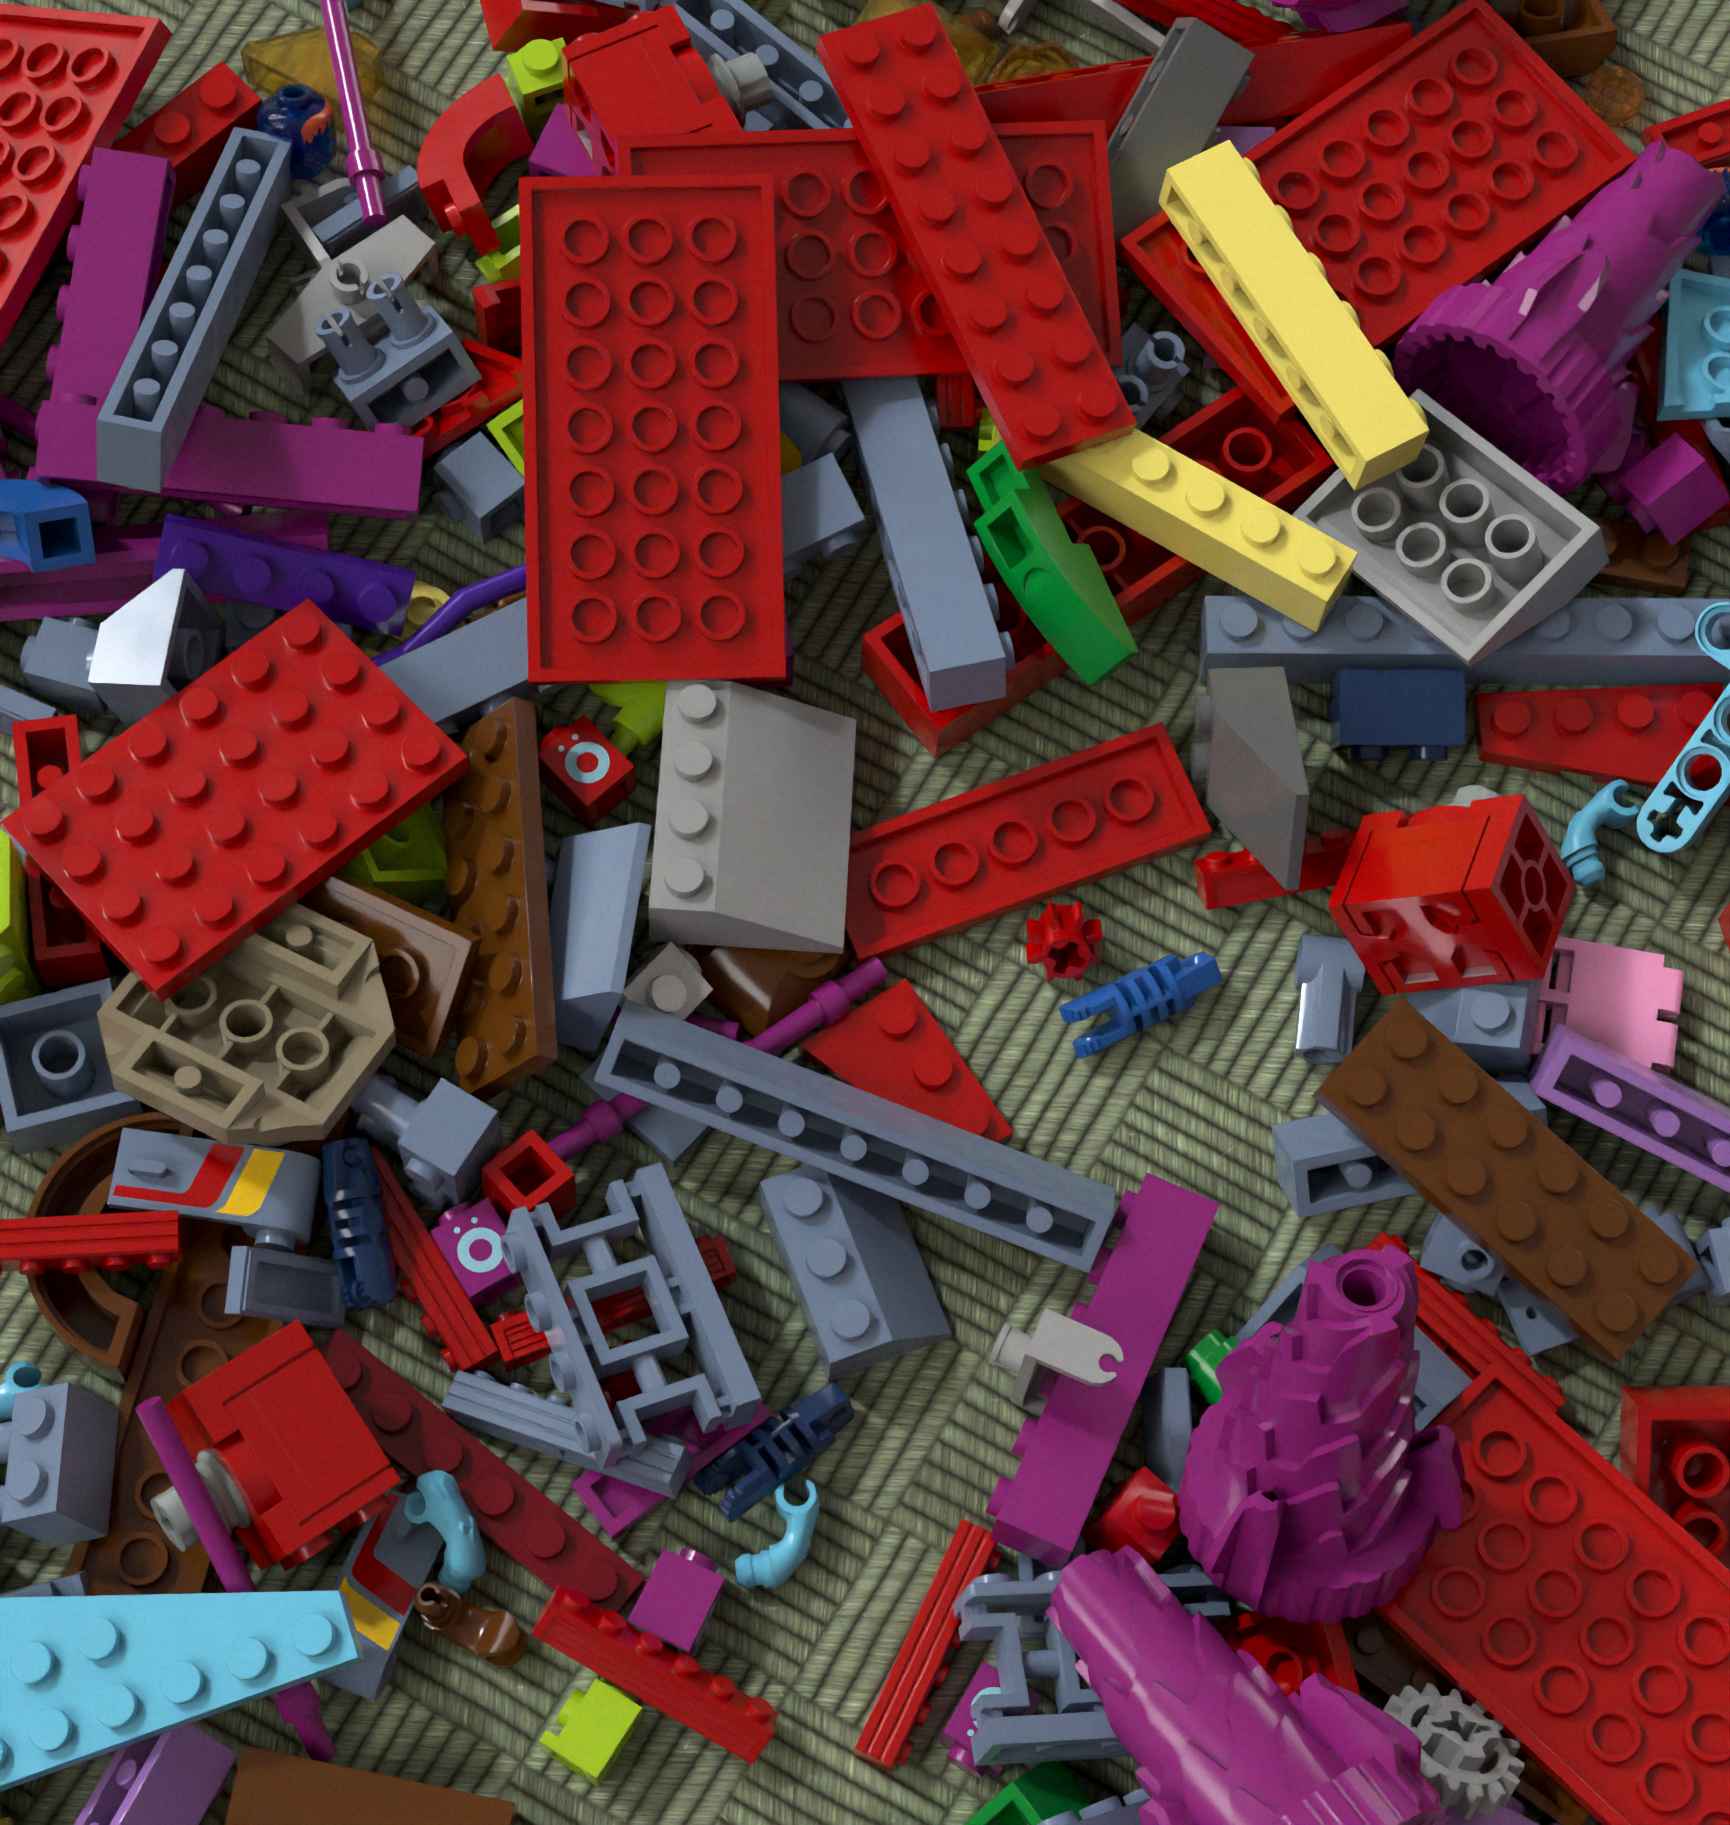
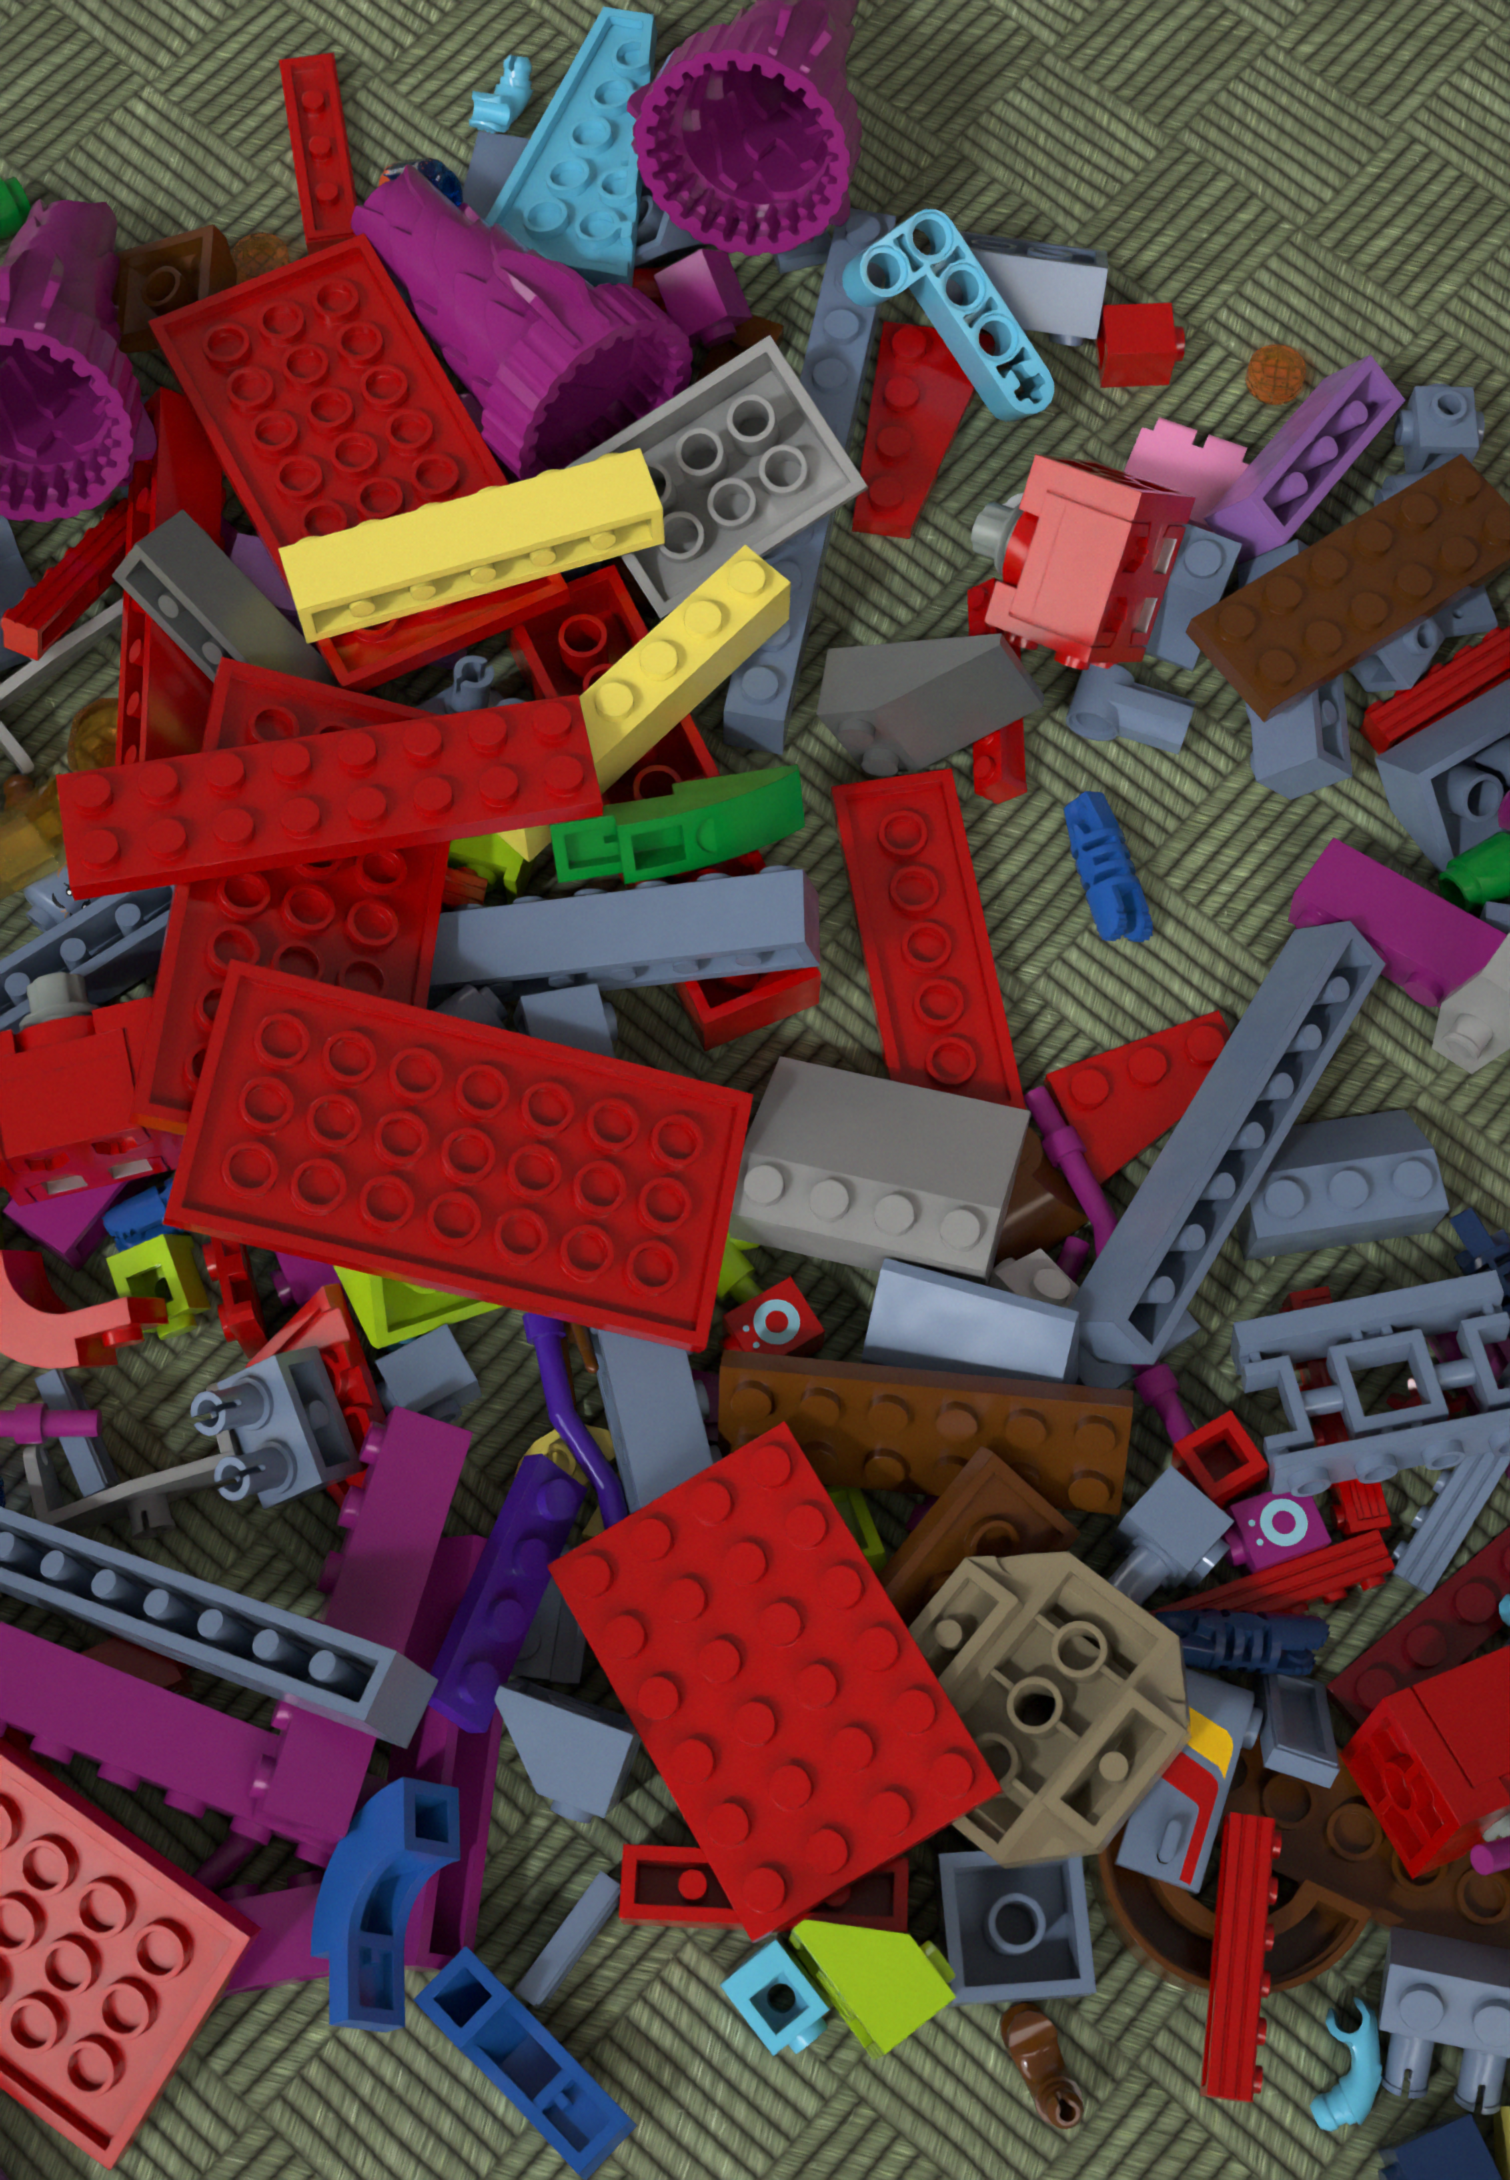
camera: 75 degrees left, 0 degrees up
(57, 663) = (534, 1851): sand blue brick -> none
(343, 284) = (180, 1468): light grey piece -> none
(1064, 941) = (1040, 921): red gear -> none
(1397, 712) = (864, 581): dark blue brick -> none
(1580, 843) = (989, 451): medium azure piece -> none

